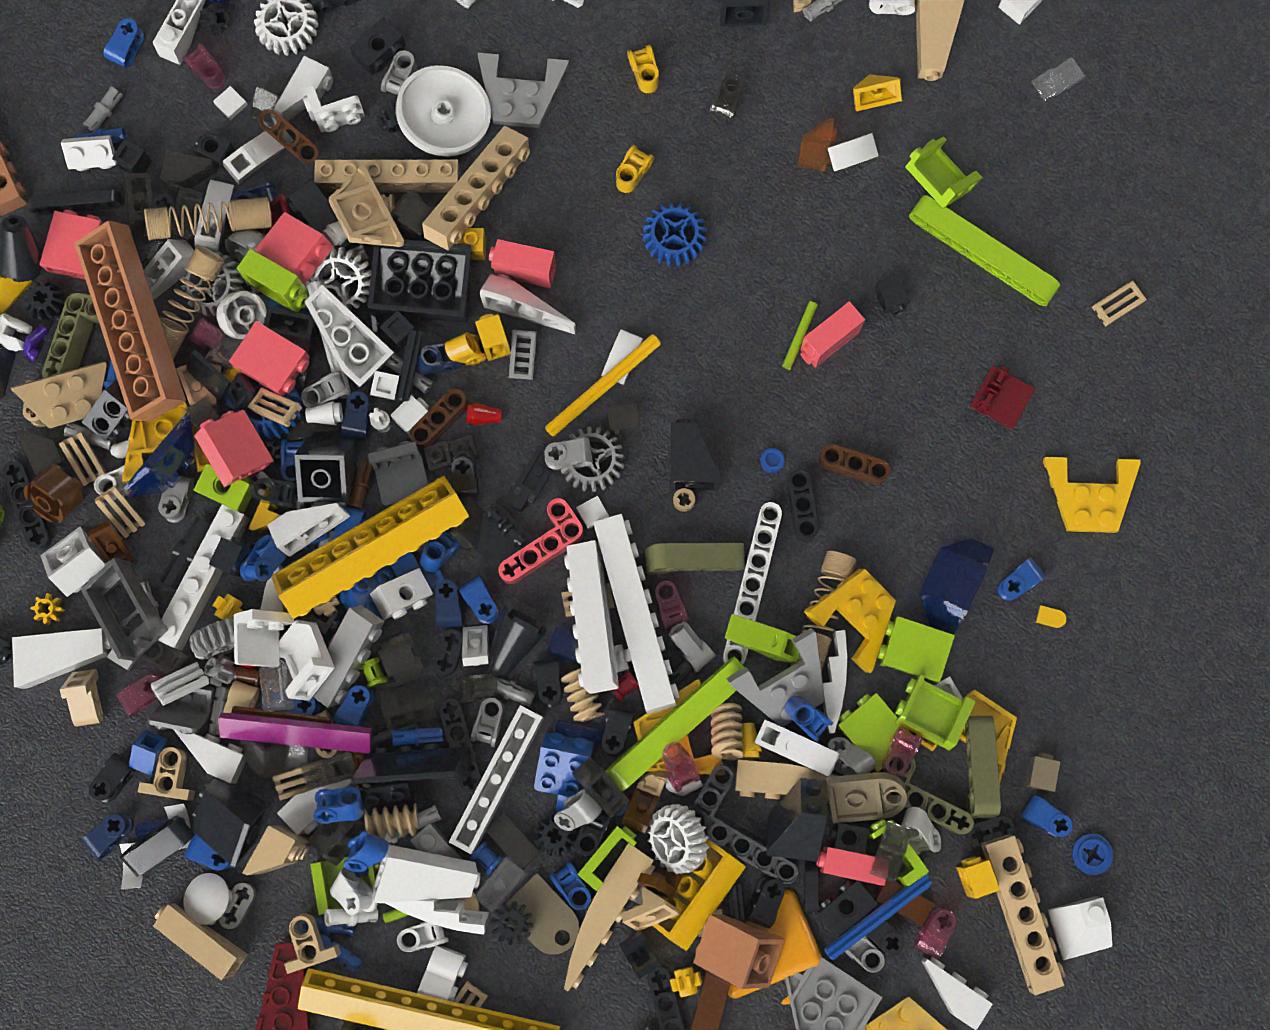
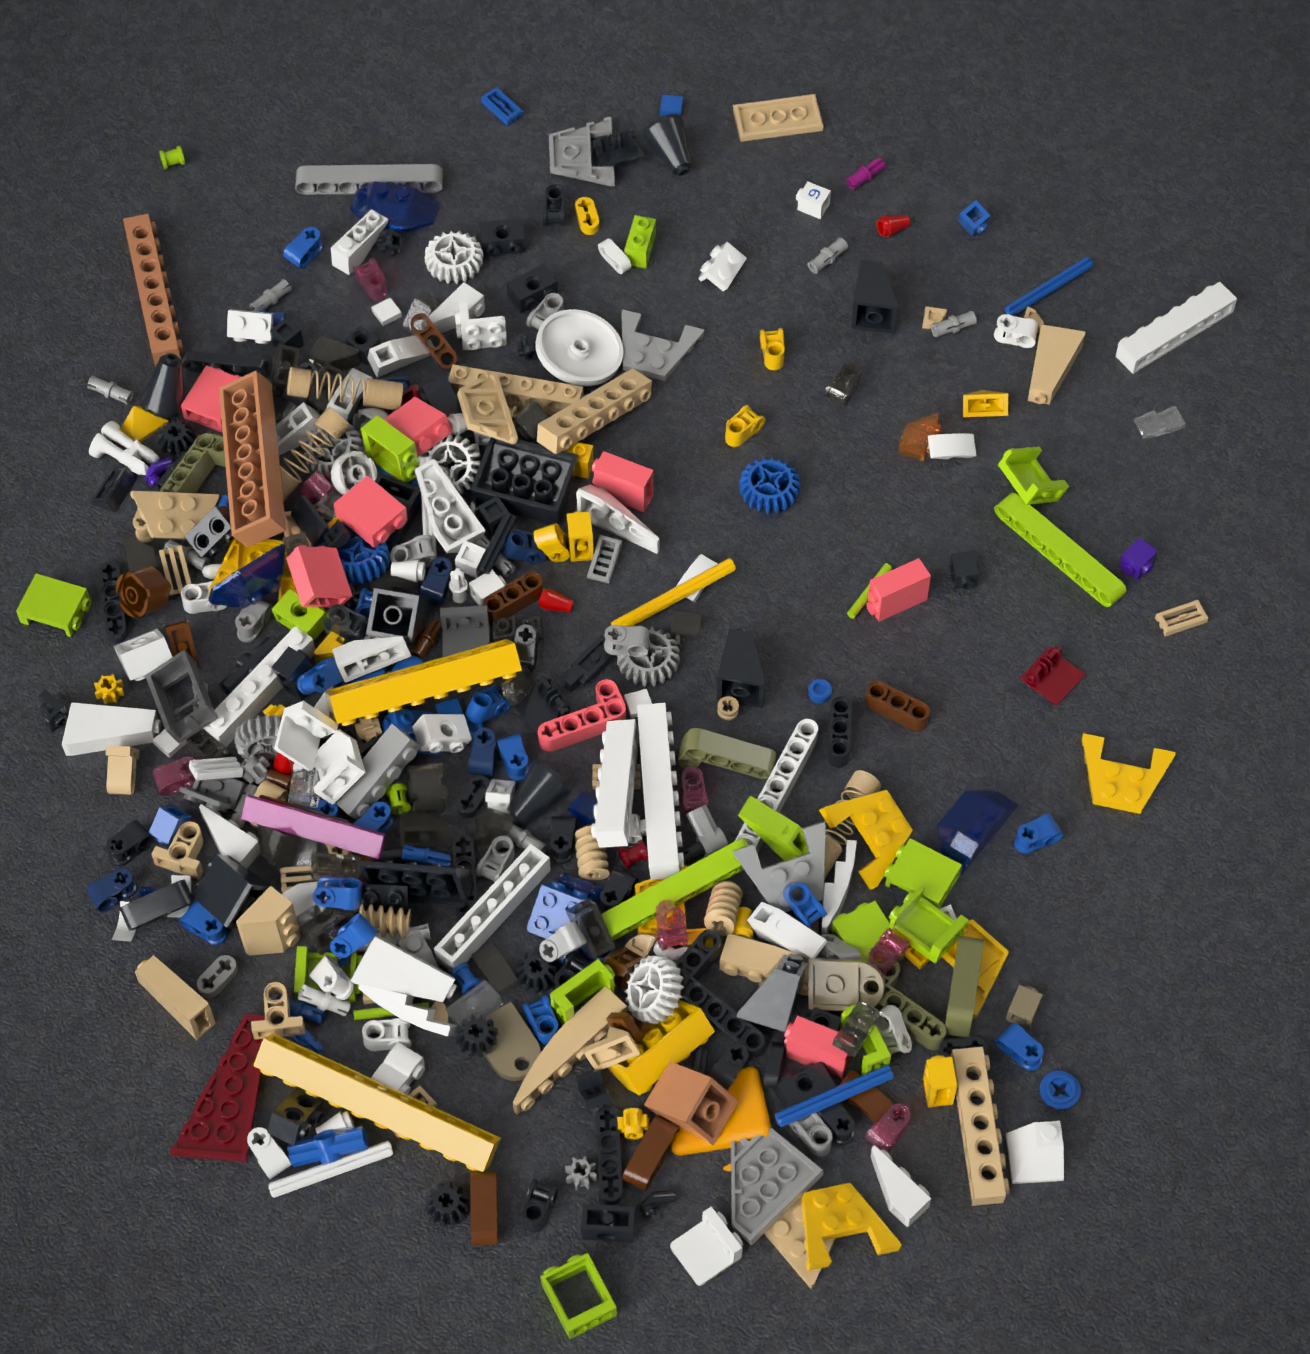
camera: 10 degrees right, 20 degrees down
(132, 527) = (207, 616): tan tile -> none
(207, 898) = (191, 961): white dish -> none
(288, 414) = (362, 555): tan tile -> none
(1050, 617) = (1061, 874): yellow piece -> none
(1066, 247) = (1138, 559): none -> dark purple brick

